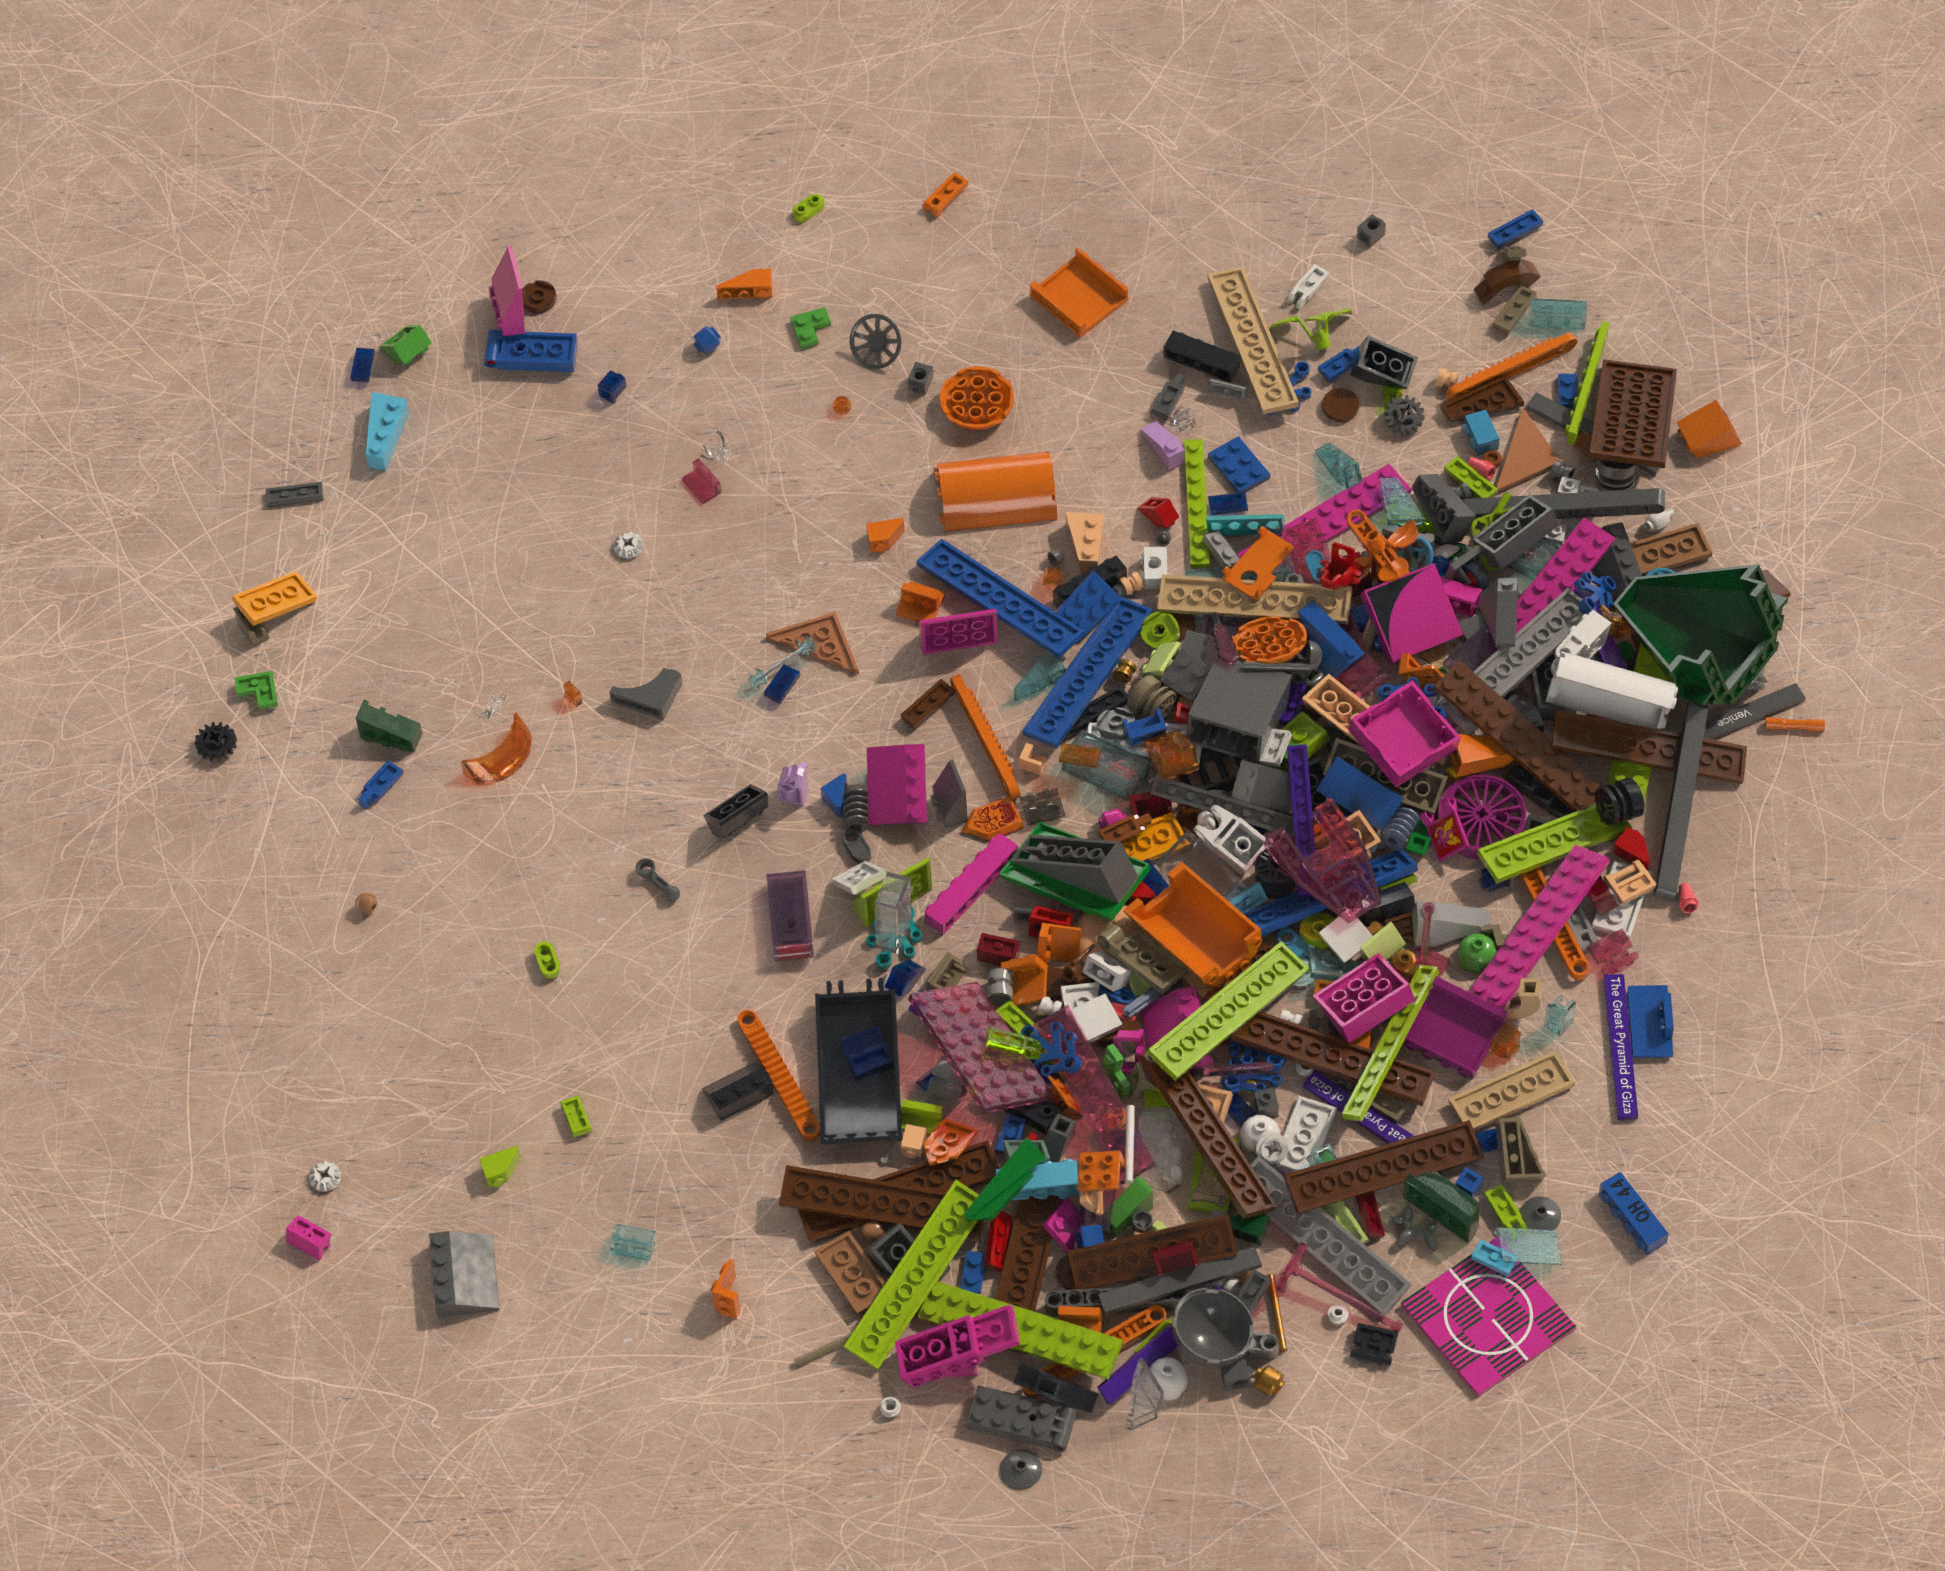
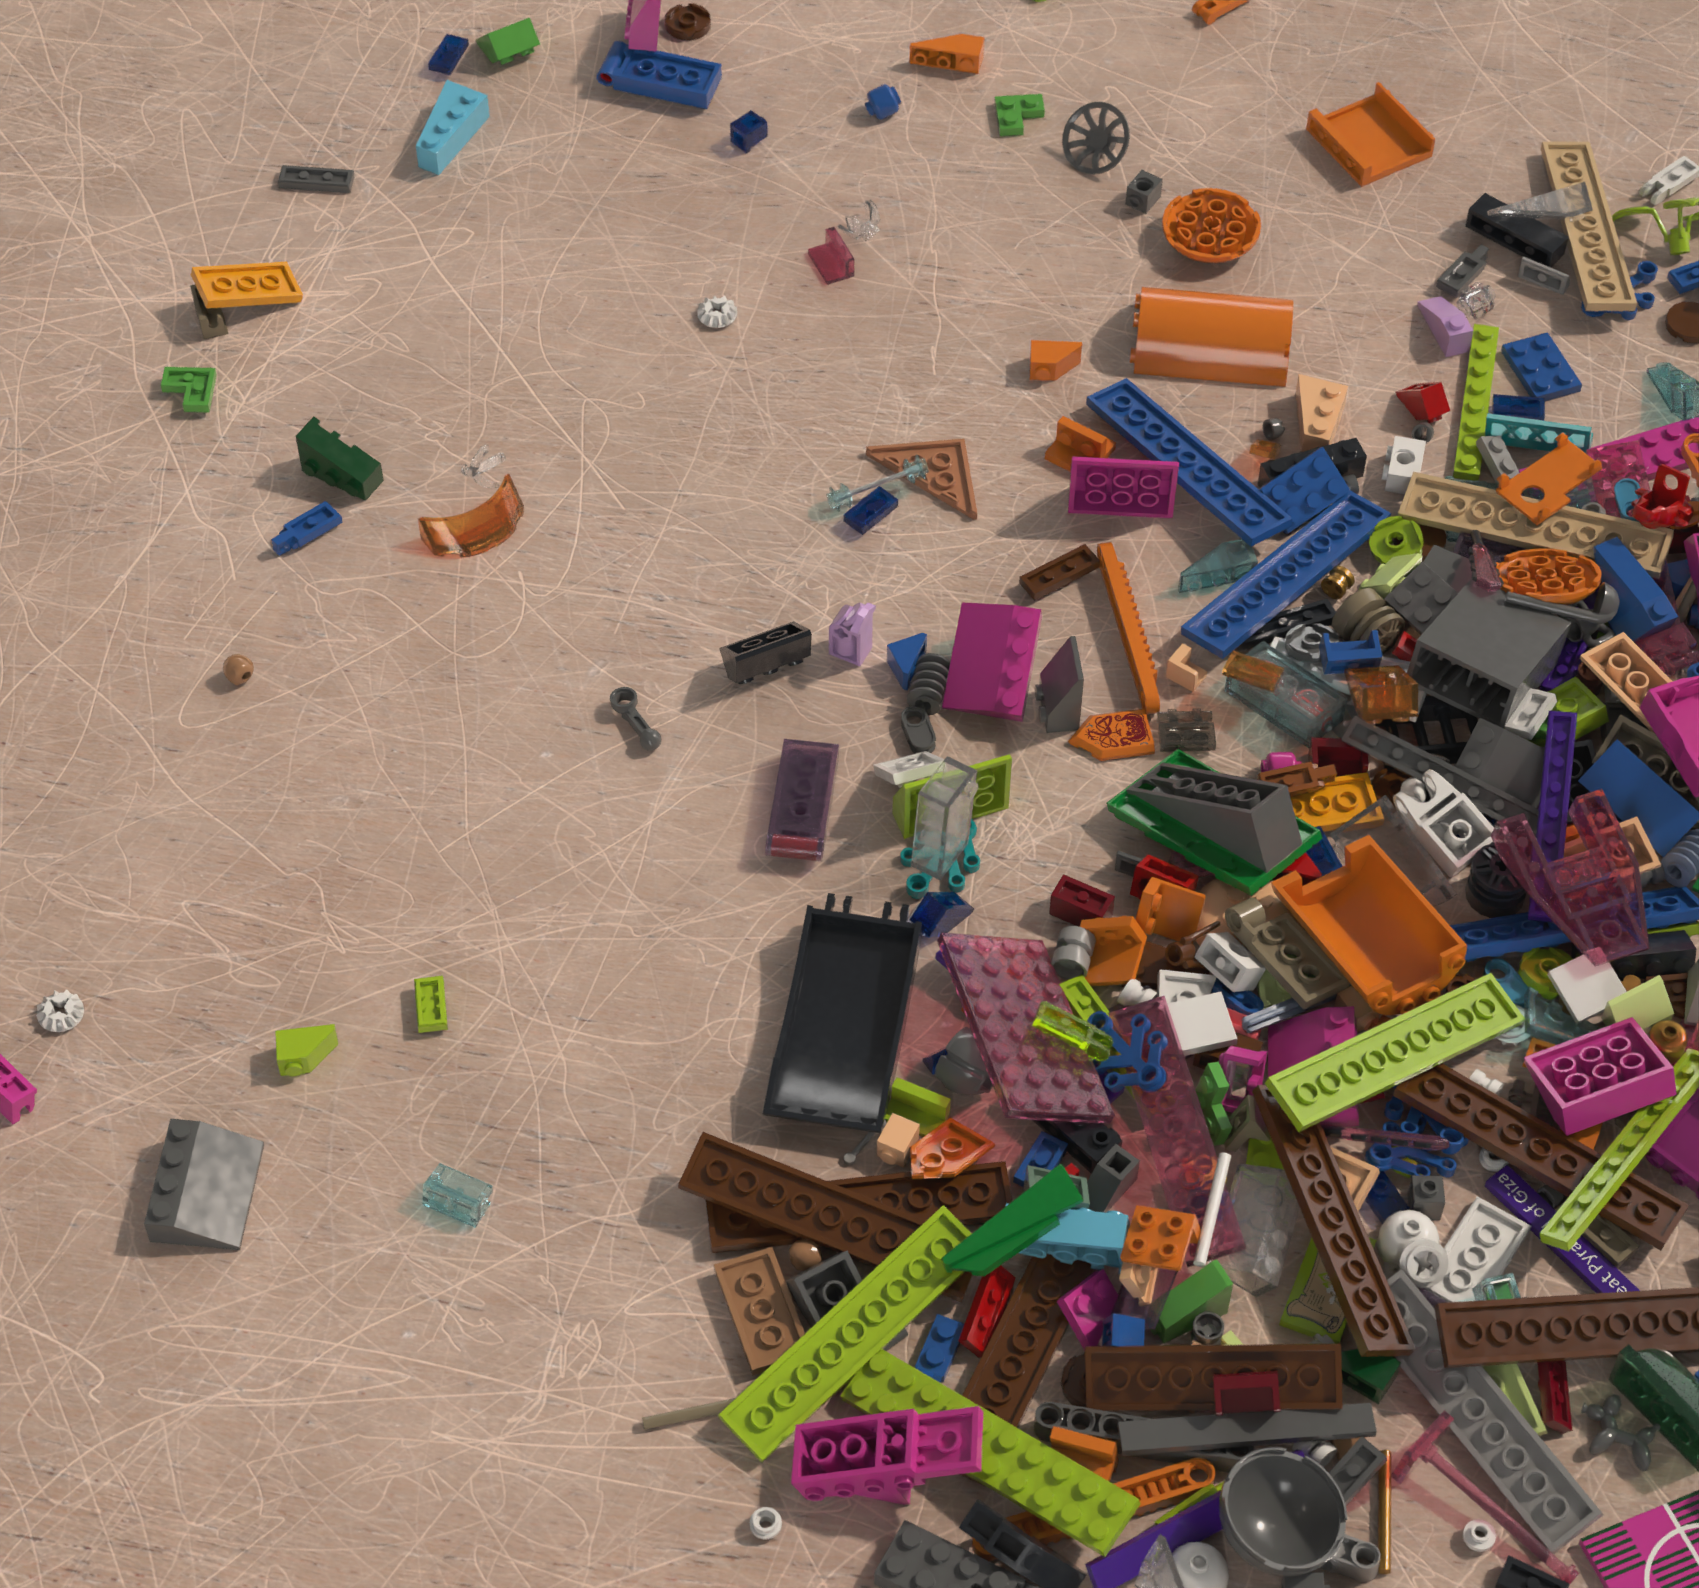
camera: 10 degrees right, 5 degrees down
(215, 741) = (126, 432): black gear -> none
(547, 961) = (455, 792): lime plate -> none
(572, 694) = (591, 469): clear orange plate -> none
(651, 698) = (695, 493): dark grey arch -> none
(724, 1299) = (560, 1291): orange bracket -> none
(739, 1090) = (668, 1018): black slope -> none
(779, 1075) = (730, 1009): orange gear -> none
(842, 405) = (1035, 204): clear orange plate -> none
(866, 1050) = (862, 1000): clear blue slope -> none
(947, 973) = (1002, 919): dark tan hinge -> none
(970, 884) = (1062, 810): dark pink brick -> none
(1063, 1098) = (1129, 1127): orange hinge -> none
(1131, 583) = (1369, 478): light nougat wheel -> none
(1225, 330) = (1557, 205): none -> clear wedge
(1249, 898) = (1458, 906): medium azure plate -> none

